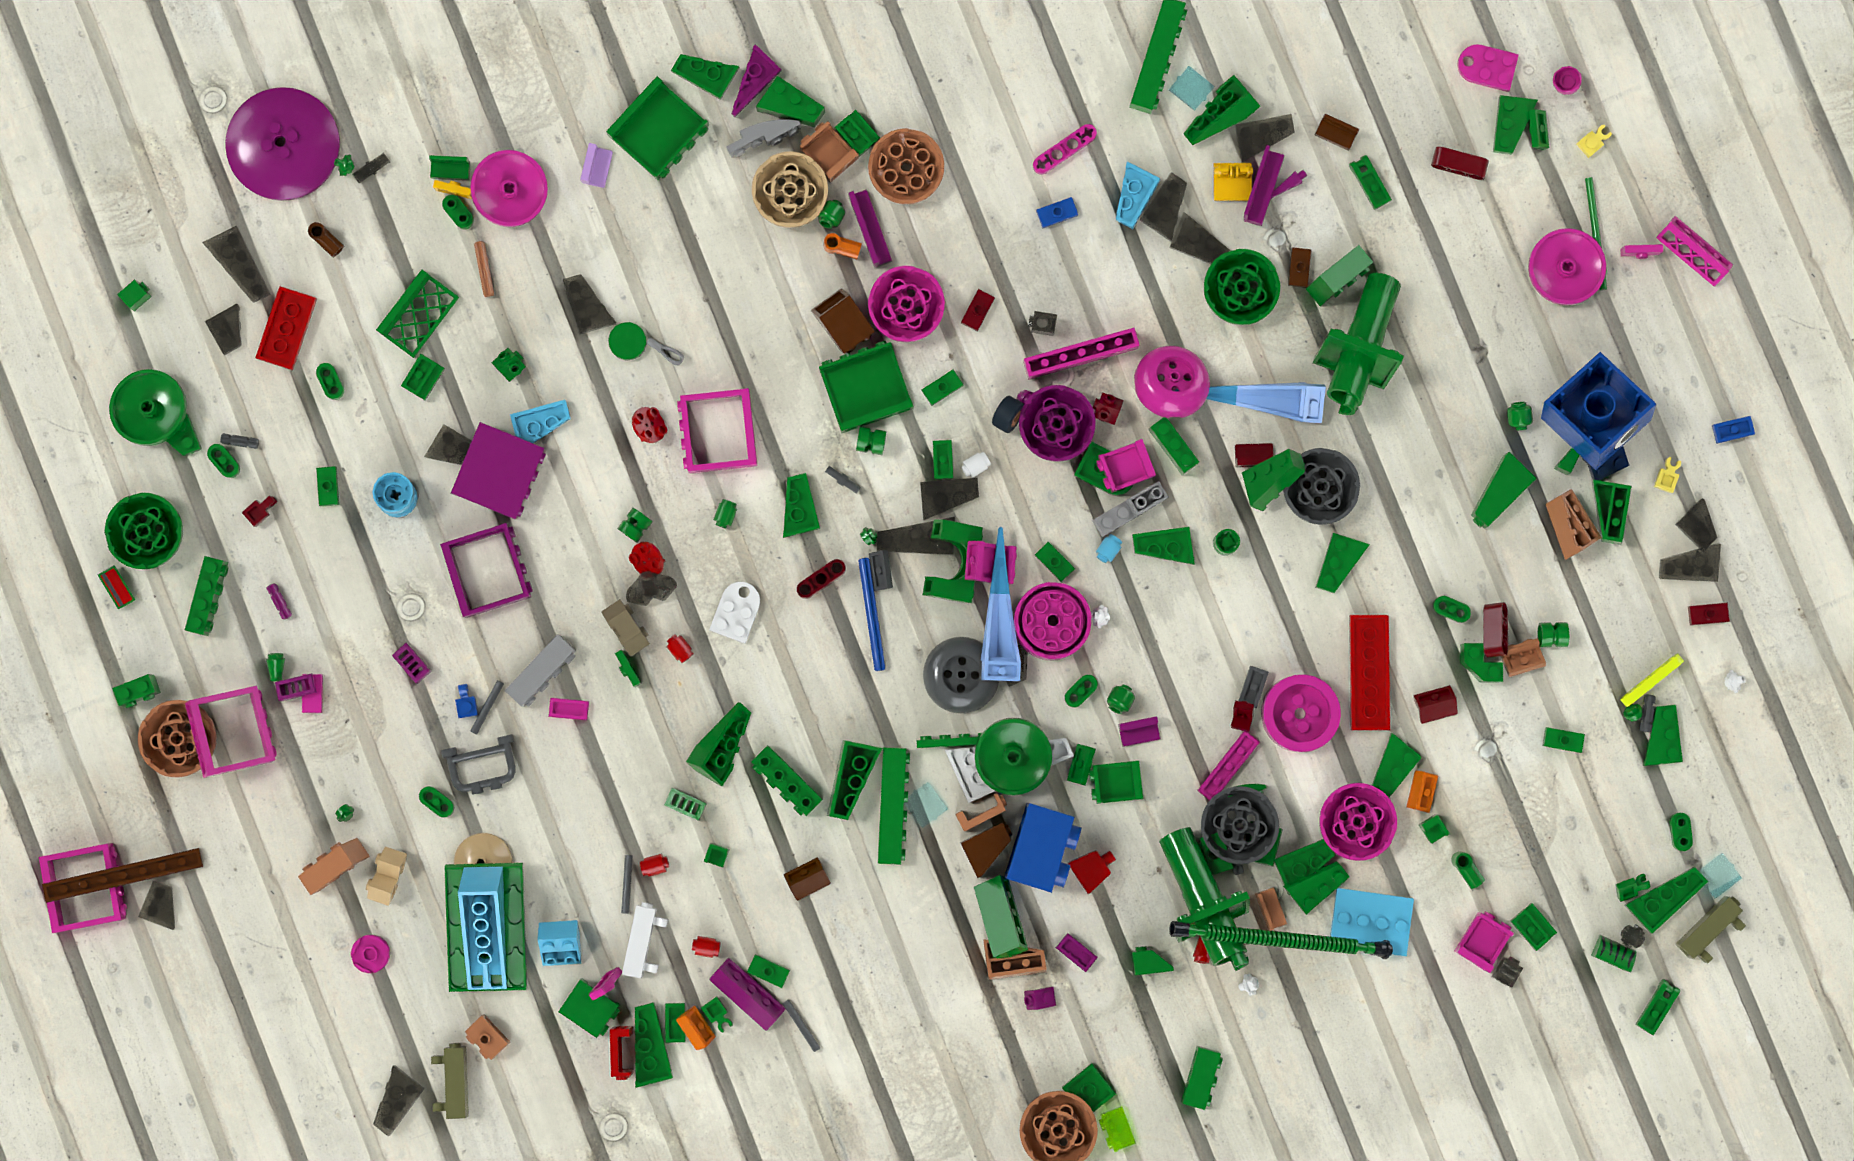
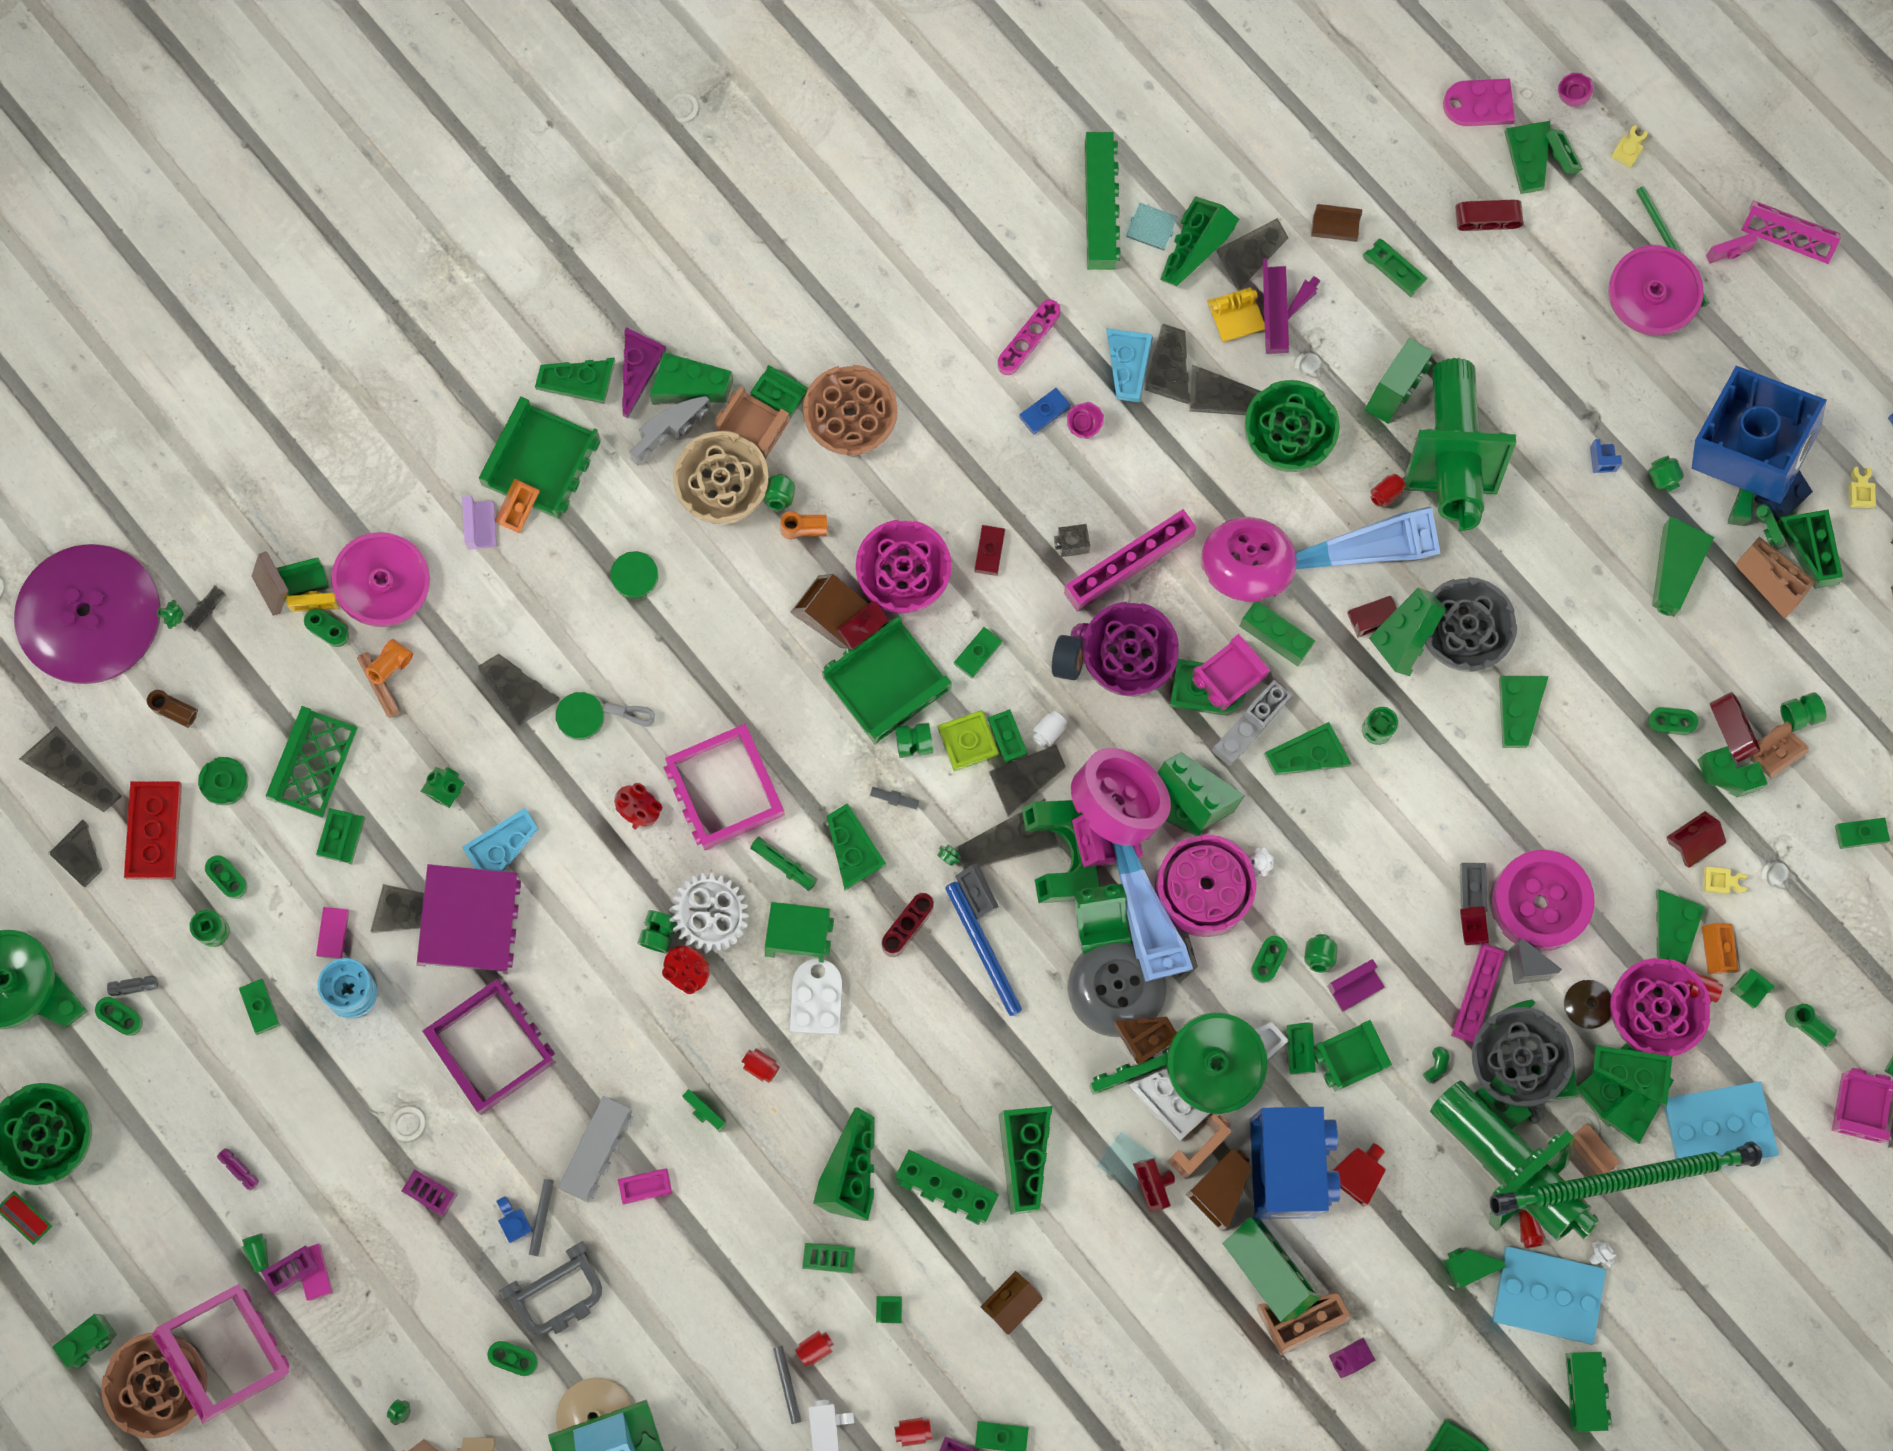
camera: 20 degrees left, 10 degrees down
(206, 596) = (143, 1191): green brick -> none
(258, 511) = (179, 1066): dark red plate -> none
(307, 417) = (209, 928): none -> green wheel
(348, 306) = (223, 781): none -> green tile
(396, 448) = (332, 933): none -> dark pink tile
(424, 165) = (269, 583): none -> tile
(500, 252) = (392, 657): none -> orange piece
(624, 626) = (685, 1060): dark tan brick -> none
(629, 161) = (517, 506): none -> orange slope
(650, 586) = (699, 1000): clear smoke piece -> none
(681, 507) = (708, 935): none -> white gear
(701, 244) = (634, 575): none -> green tile
(725, 513) = (764, 883): green brick -> none
(738, 558) = (798, 930): none -> green panel
(744, 503) = (787, 866): none -> green pin
(860, 340) = (862, 625): none -> dark red tile
(870, 228) = (829, 495): magenta fence -> none
(892, 806) = (1087, 1175): green brick -> none
(912, 453) = (968, 740): none -> lime tile
(938, 828) = (1154, 1183): none -> dark red tile
(966, 620) = (1101, 916): none -> green panel
(968, 719) = (1145, 1036): none -> reddish brown wing
(1023, 529) = (1137, 789): none -> dark pink brick
(1071, 548) = (1198, 791): none -> green wedge
(1076, 952) = (1377, 1284): magenta plate -> none
(1084, 231) = (1085, 420): none -> dark pink hair
(1107, 408) = (1184, 613): dark red brick -> none
(1108, 548) = (1243, 776): medium azure brick -> none
(1181, 809) = (1440, 1065): none -> green arm
(1199, 1001) = (1549, 1295): none -> medium azure plate
(1272, 759) = (1529, 964): none -> dark grey slope
(1298, 797) = (1576, 1004): none -> dark brown dish
(1299, 267) = (1348, 386): reddish brown plate -> none
(1299, 360) = (1387, 490): none -> red brick
(1321, 862) = (1635, 1070): none -> green wing
(1369, 672) = (1605, 826): red plate -> none
(1403, 818) = (1713, 987): none -> red brick
(1441, 741) = (1720, 881): none -> light yellow plate
(1477, 387) = (1604, 457): none -> blue panel
(1584, 488) = (1772, 533): none -> green plate

